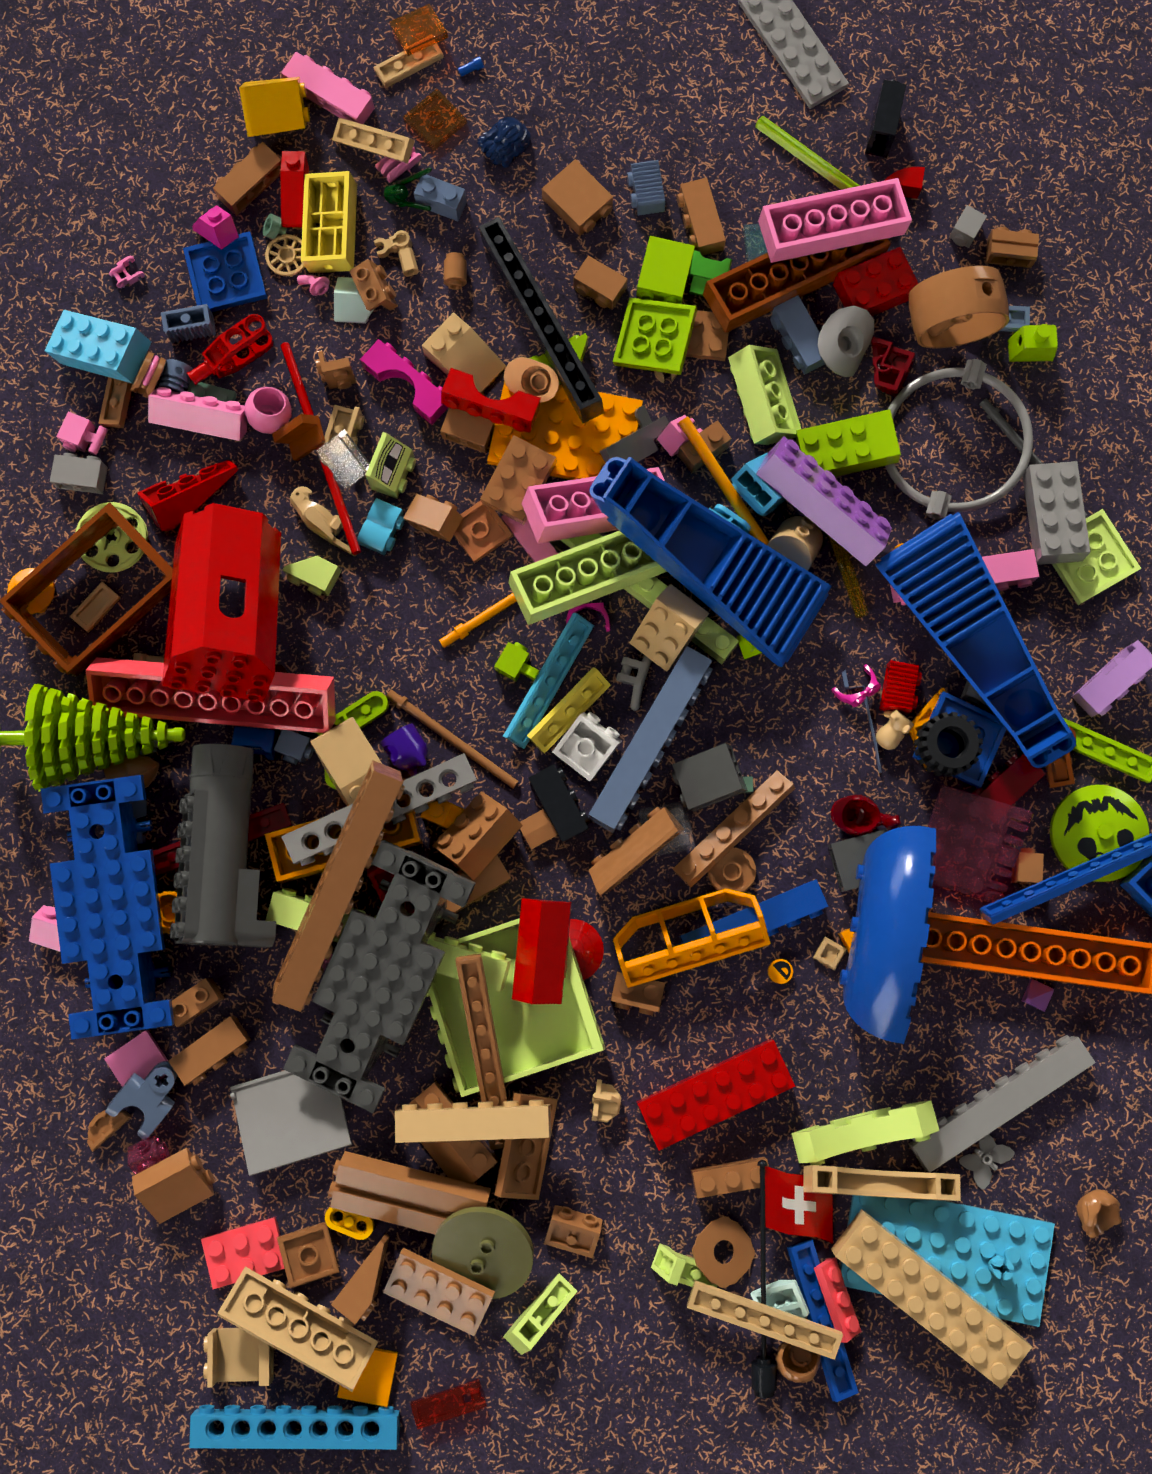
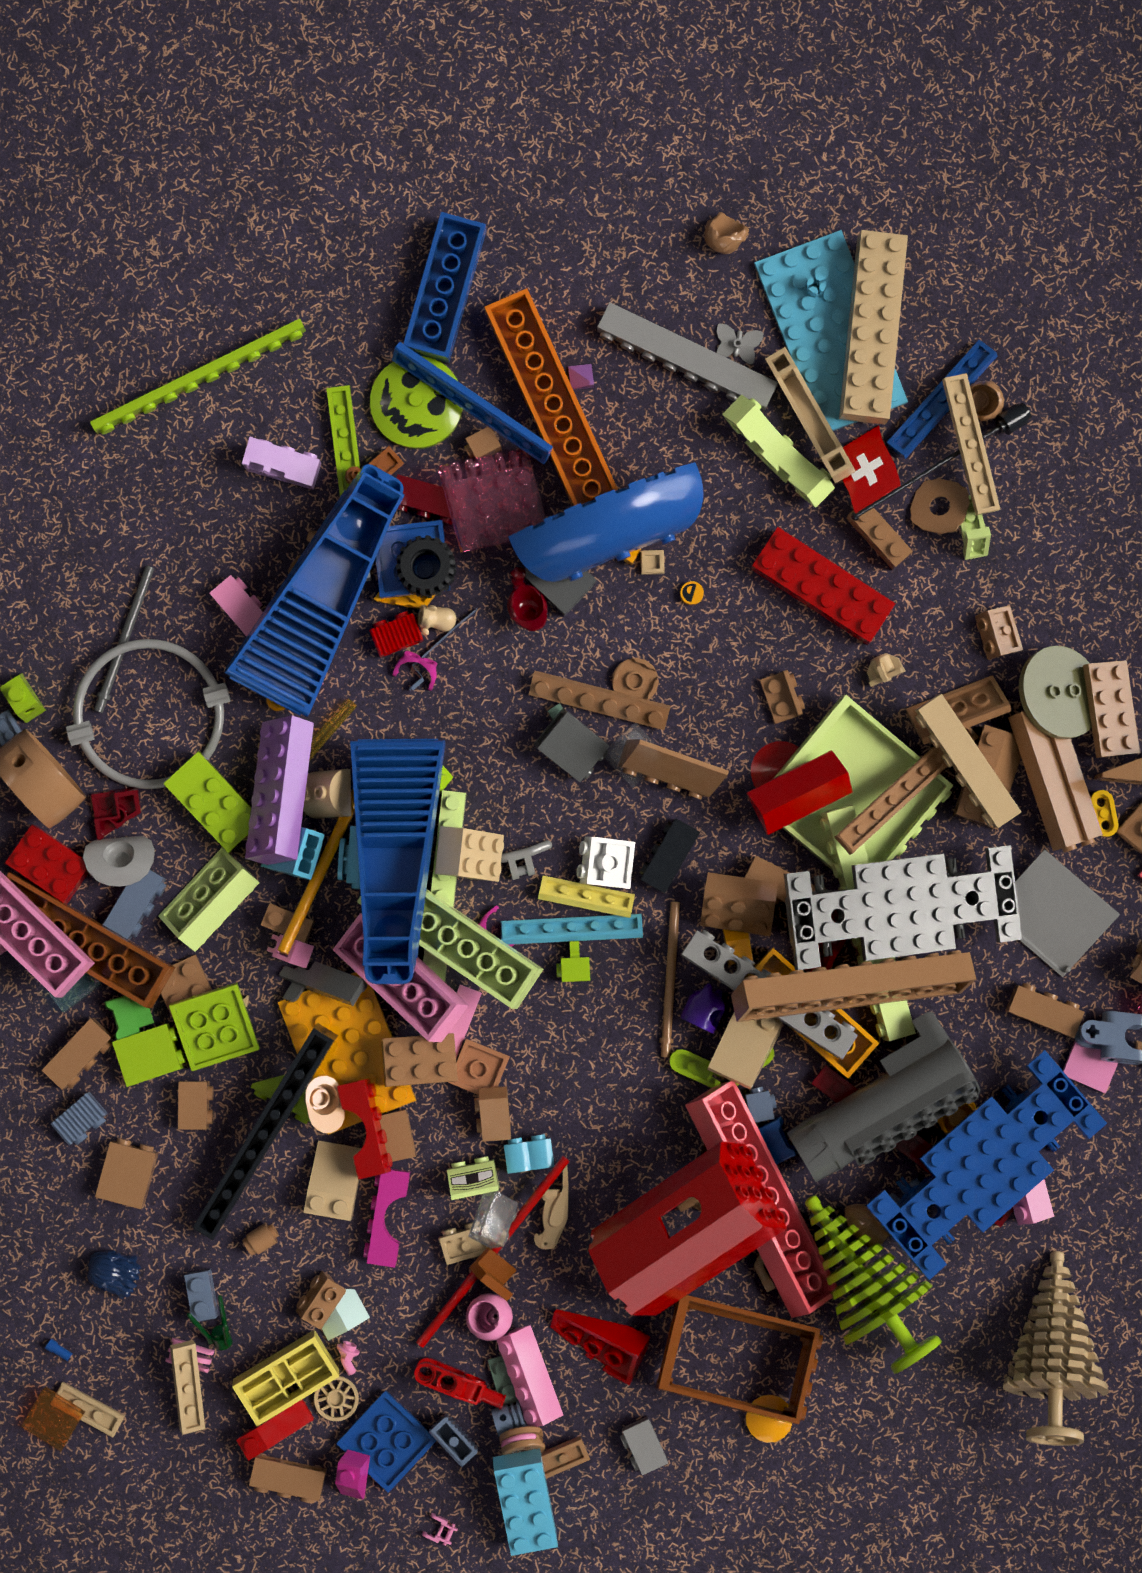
camera: 125 degrees left, 5 degrees up
(78, 432) = (609, 1471): bright pink brick -> none
(95, 607) = (748, 1354): tan tile -> none
(116, 547) = (686, 1370): yellowish green wedge -> none
(195, 1001) = (1014, 1047): medium nougat brick -> none
(273, 227) = (319, 1426): sand green tile -> none
(274, 106) = (210, 1496): yellow slope -> none
(315, 573) = (603, 1184): yellowish green slope -> none
(329, 90) = (161, 1462): bright pink brick -> none
(336, 372) = (419, 1276): medium nougat bracket -> none
(400, 243) = (262, 1302): tan bar -> none
(435, 119) = (128, 1350): clear orange tile -> none
(461, 630) = (574, 1029): light orange bar -> none
(537, 829) = (701, 859): medium nougat piece -> none
(540, 1314) = (1078, 619): yellowish green slope -> none
(646, 746) = (571, 812): sand blue brick -> none
(696, 952) = (723, 669): light orange plate -> none
(777, 911) = (665, 638): blue brick -> none
(784, 1296) = (943, 438): light aqua slope -> none
(837, 1299) = (919, 396): coral plate -> none
(1056, 512) = (166, 592): light grey brick -> none
(1105, 564) = (183, 542): yellowish green plate -> none

